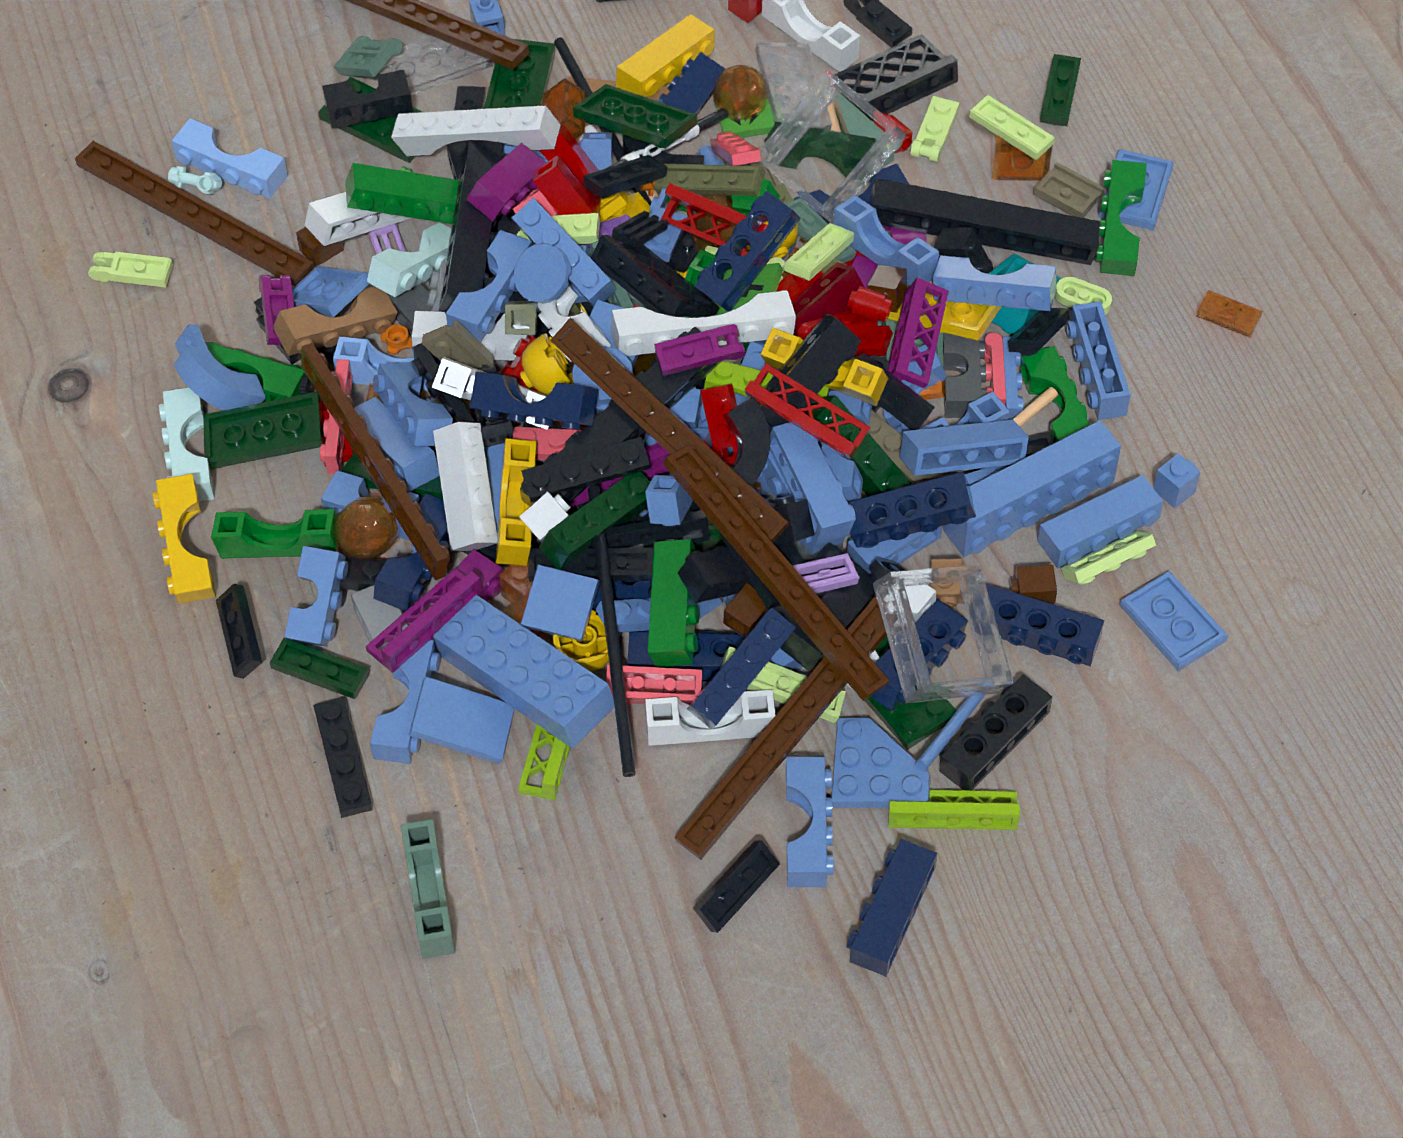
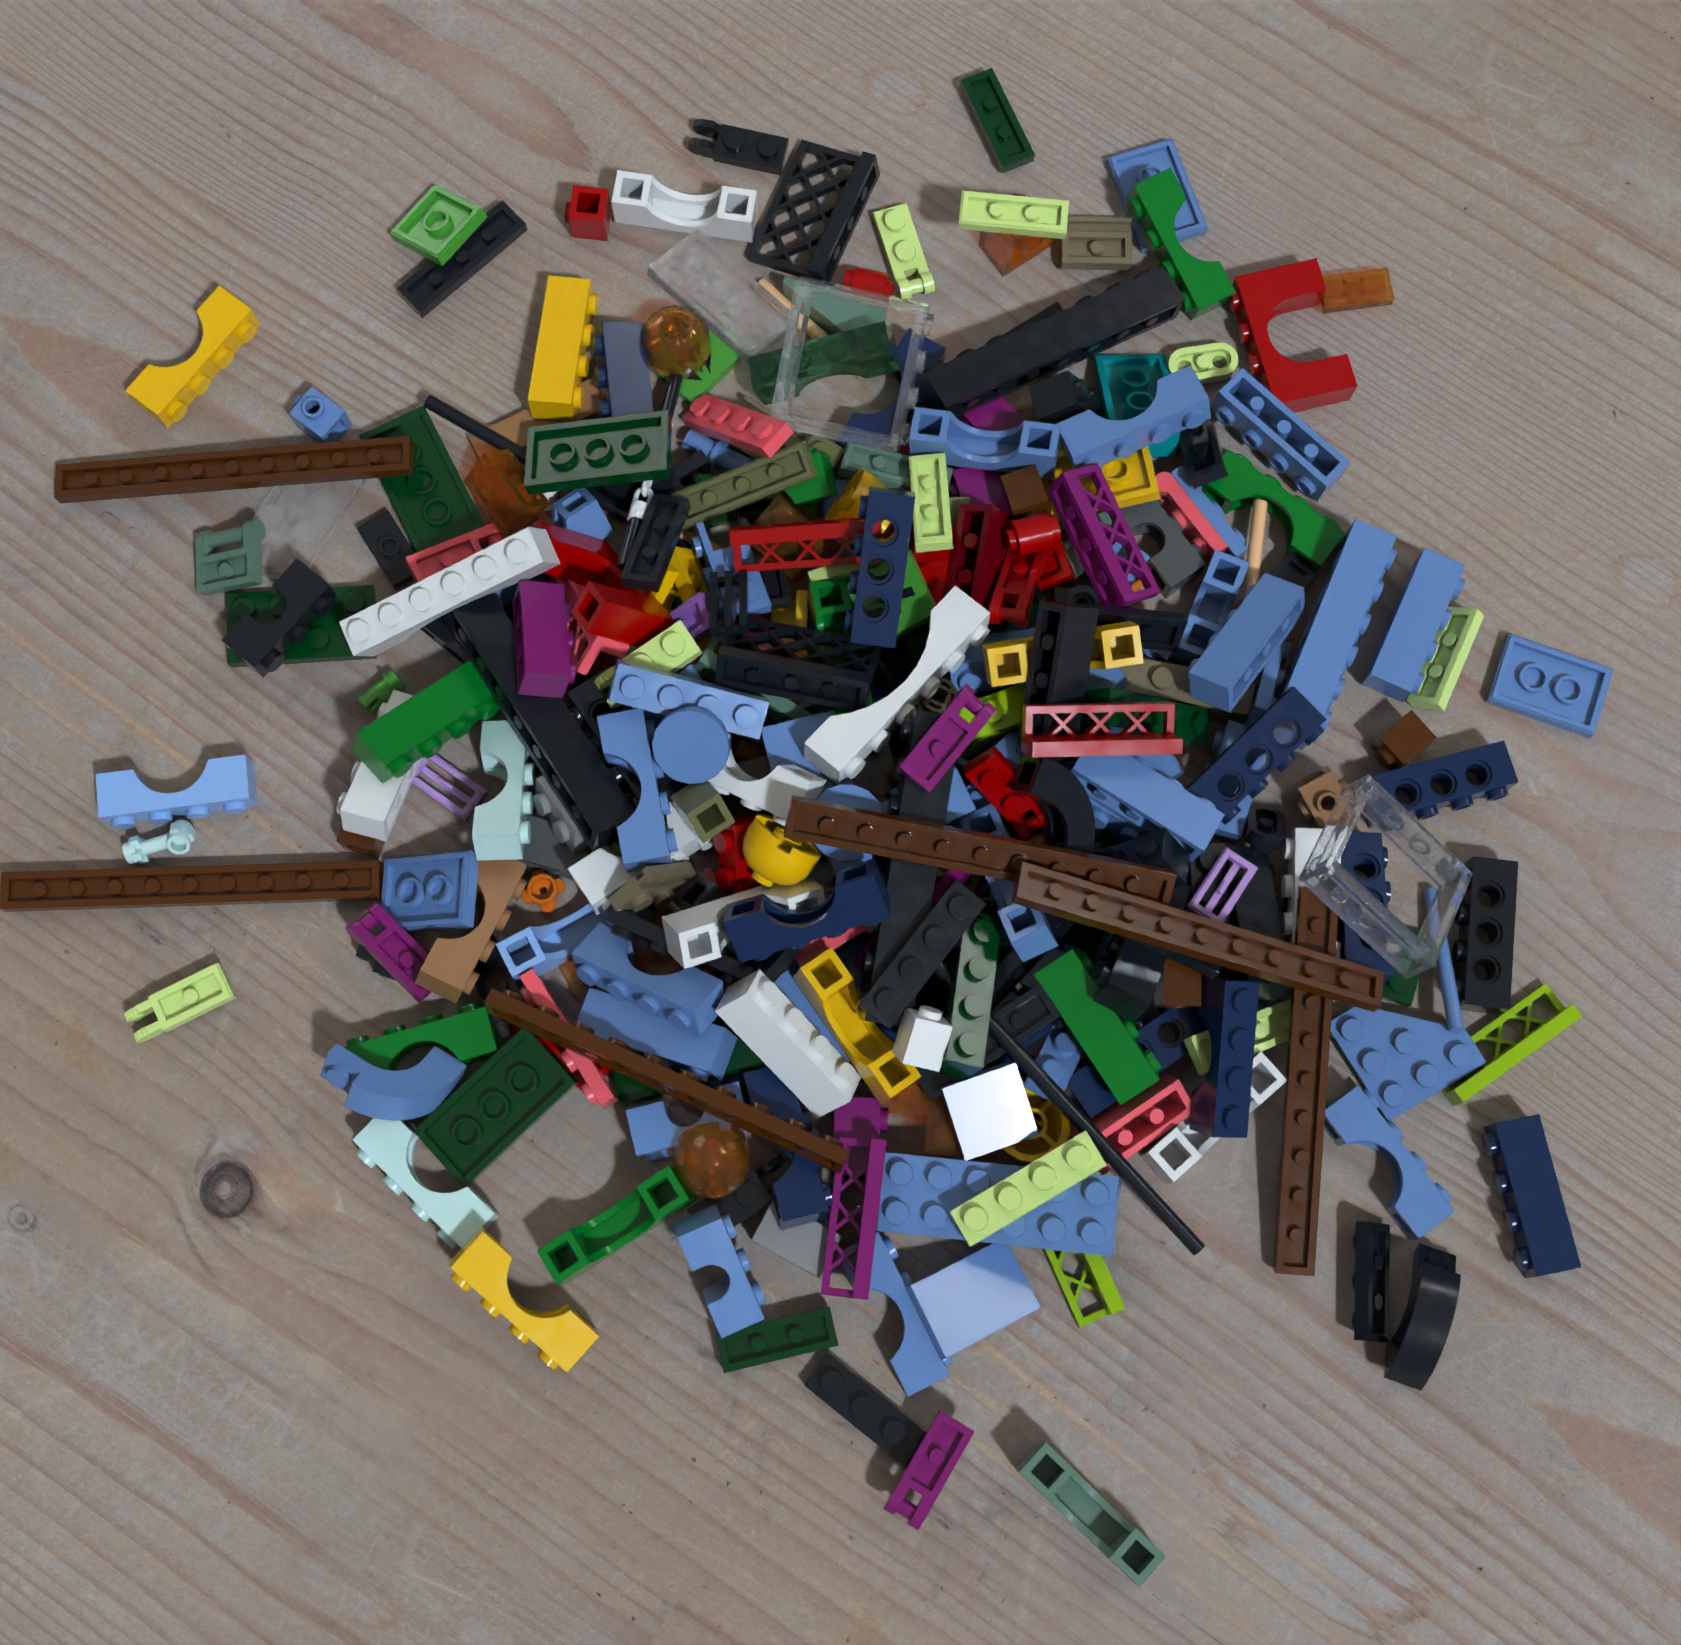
camera: 40 degrees left, 20 degrees up
(238, 631) = (660, 1358): black plate -> none
(346, 792) = (929, 1468): none -> magenta plate
(544, 654) = (1028, 1188): none -> yellowish green plate
(747, 921) = (1426, 1320): none -> black arch
(1156, 282) = (1263, 297): none -> red arch
(1176, 480) = (1449, 525): medium blue brick -> none

